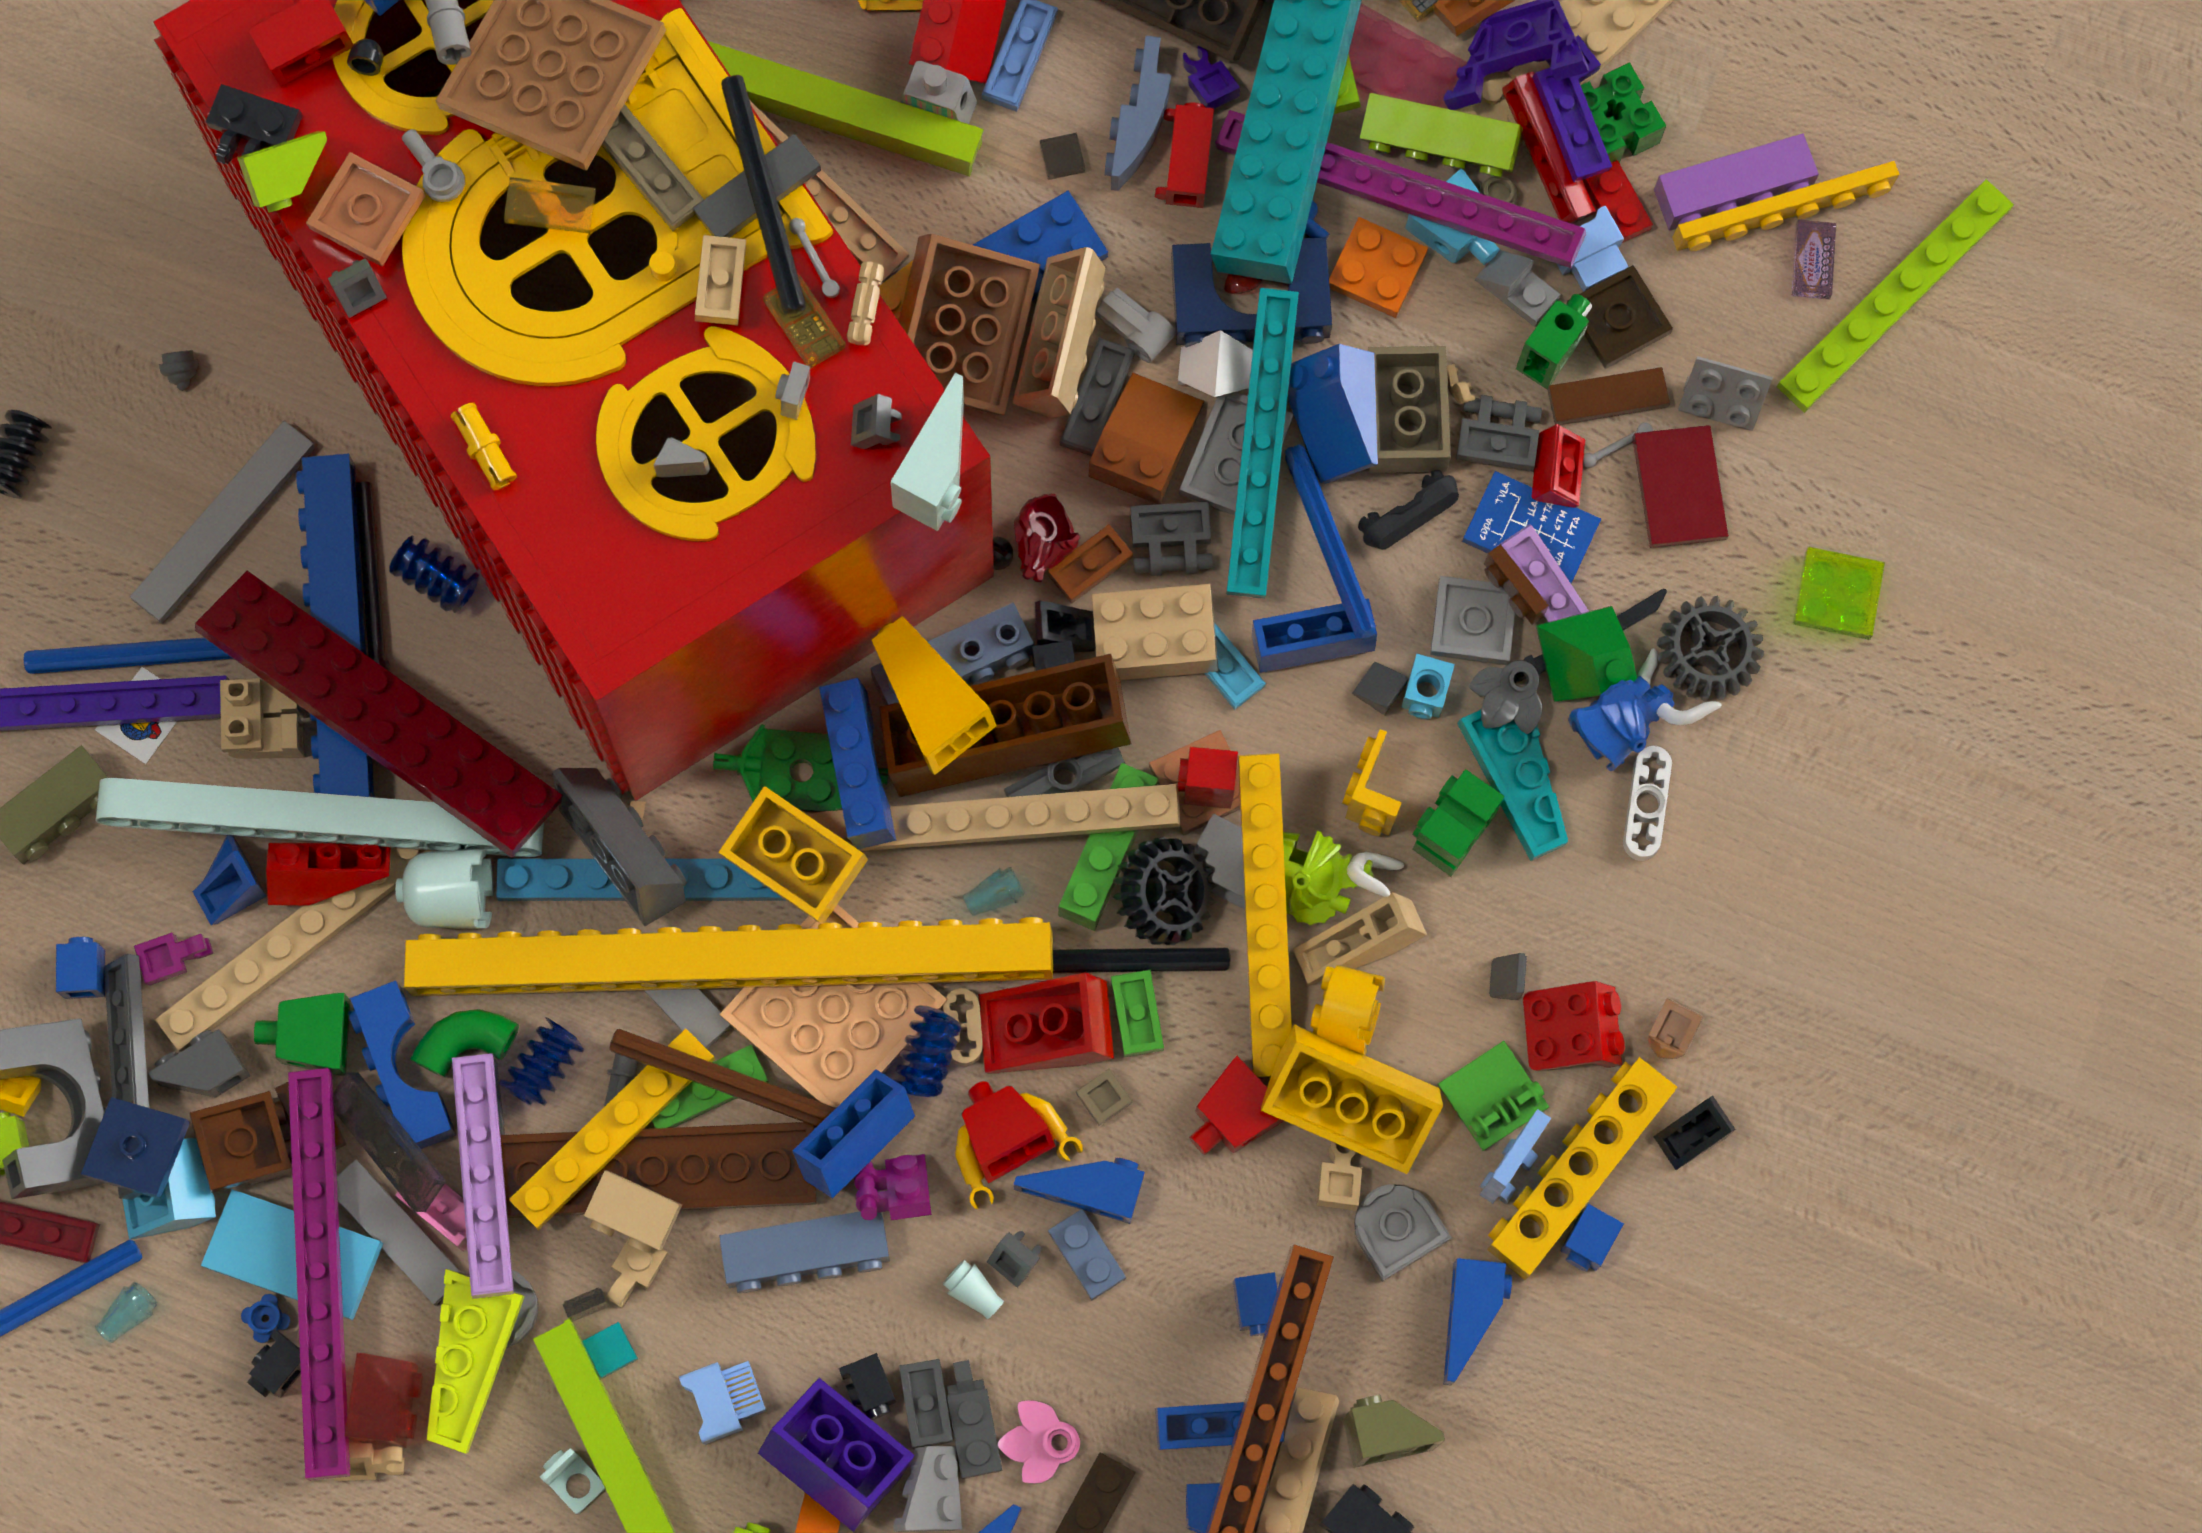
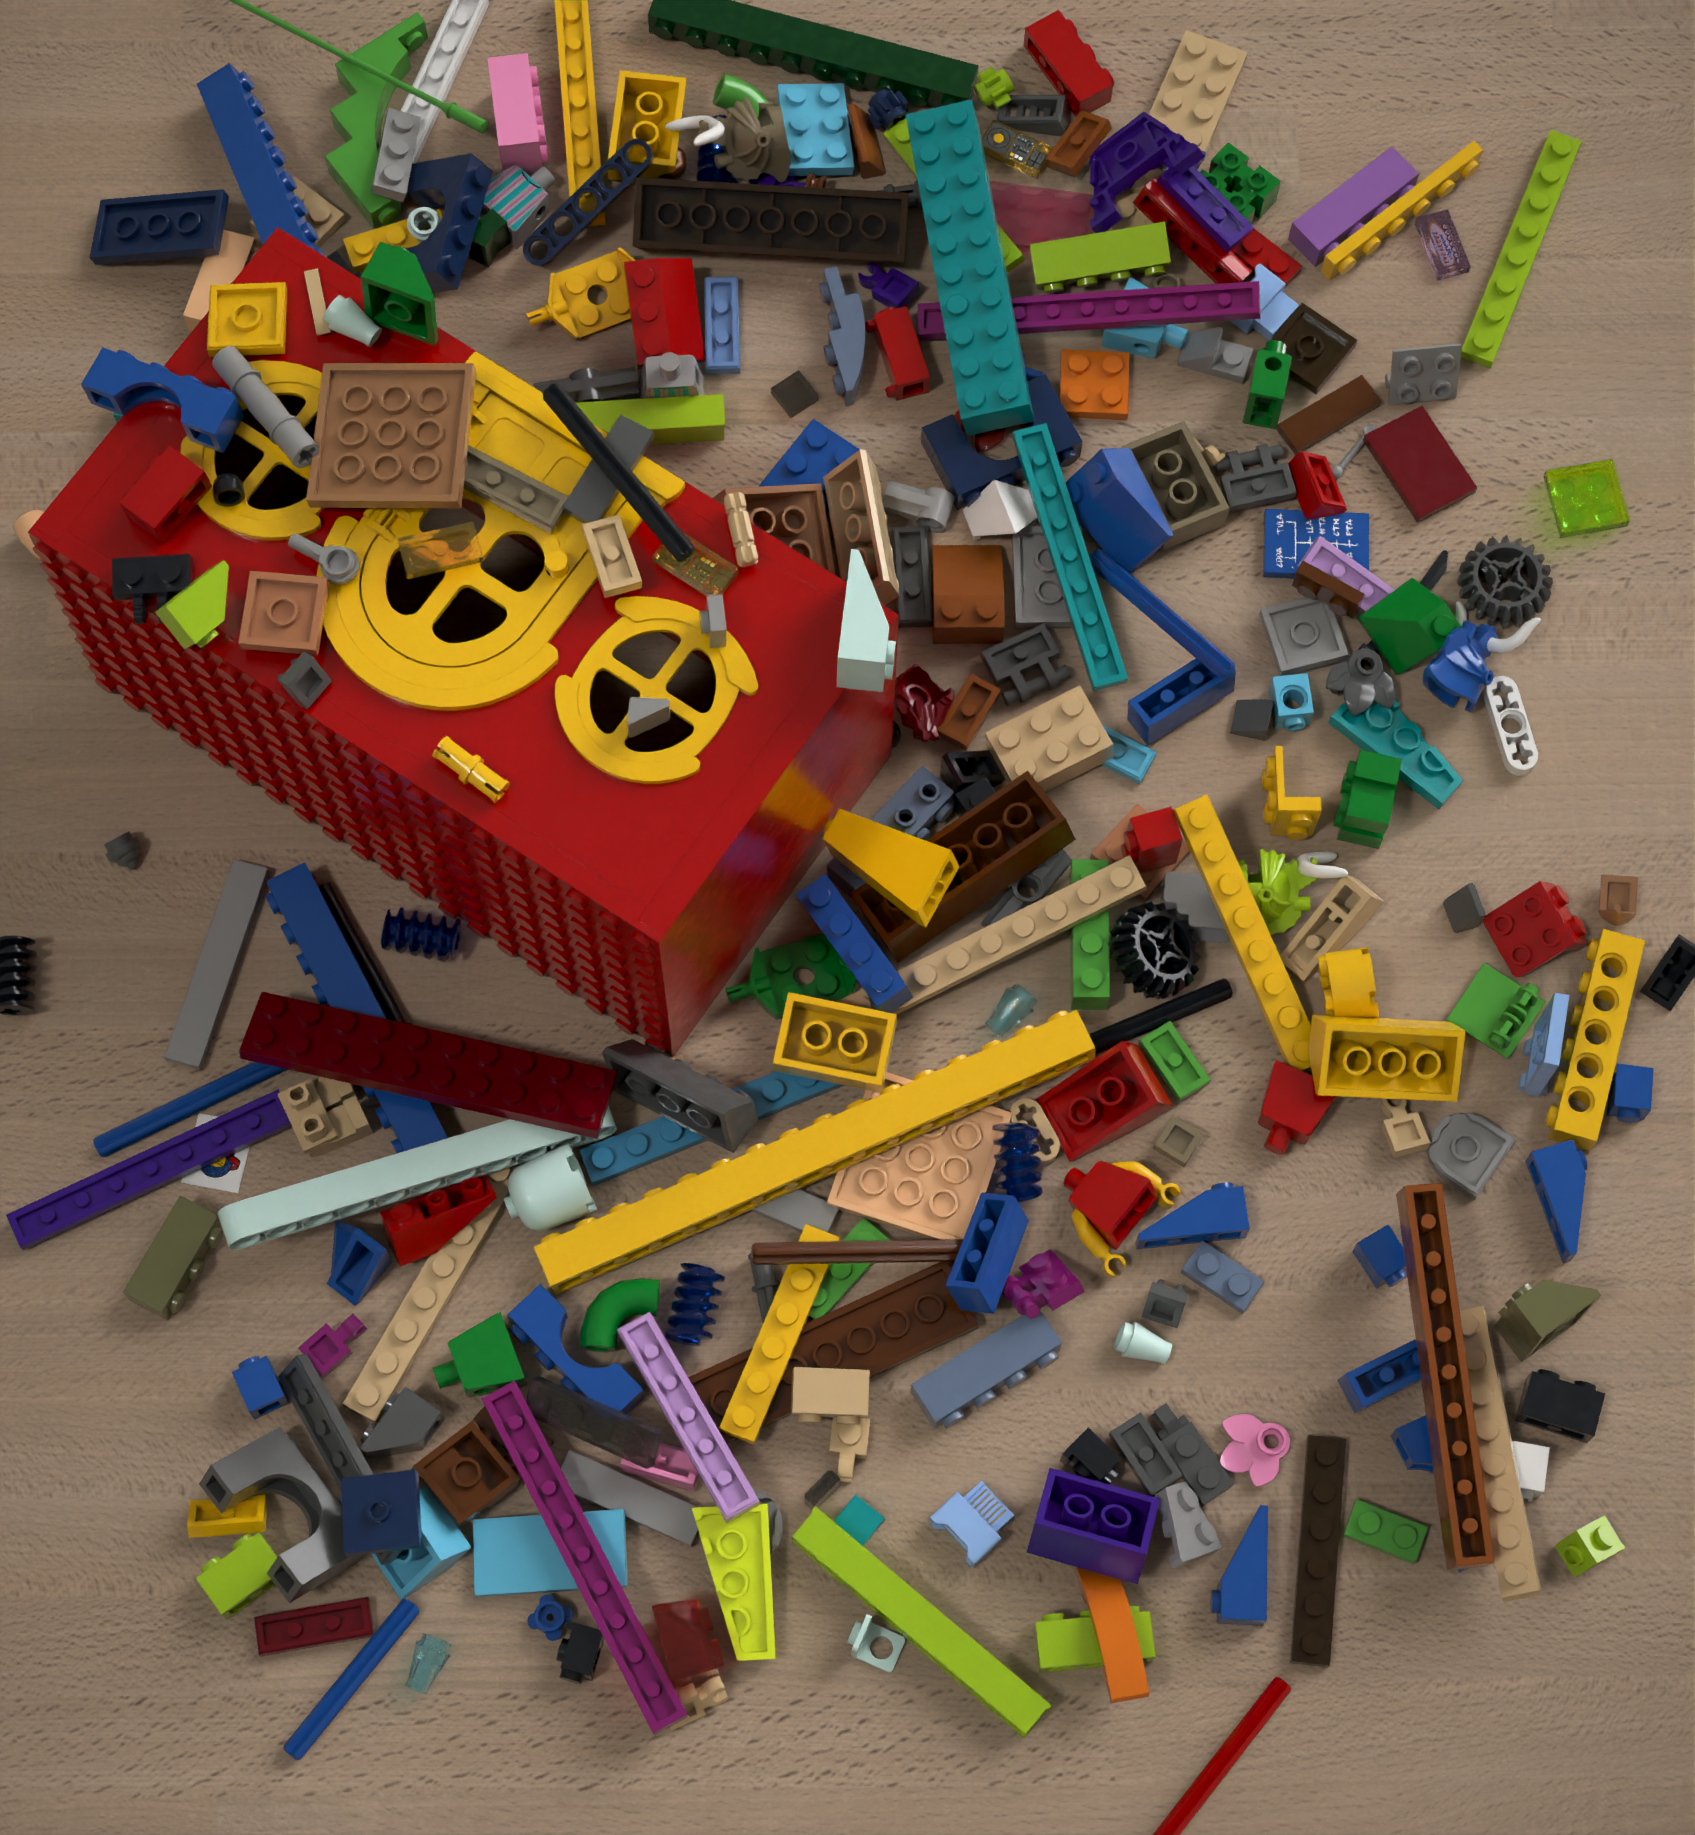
camera: 20 degrees left, 5 degrees down
(829, 287) = (704, 528): light grey hinge -> none
(851, 67) = (592, 386): none -> dark grey piece
(872, 422) = (792, 622): dark grey tile -> none
(1437, 495) = (1227, 547): black piece -> none

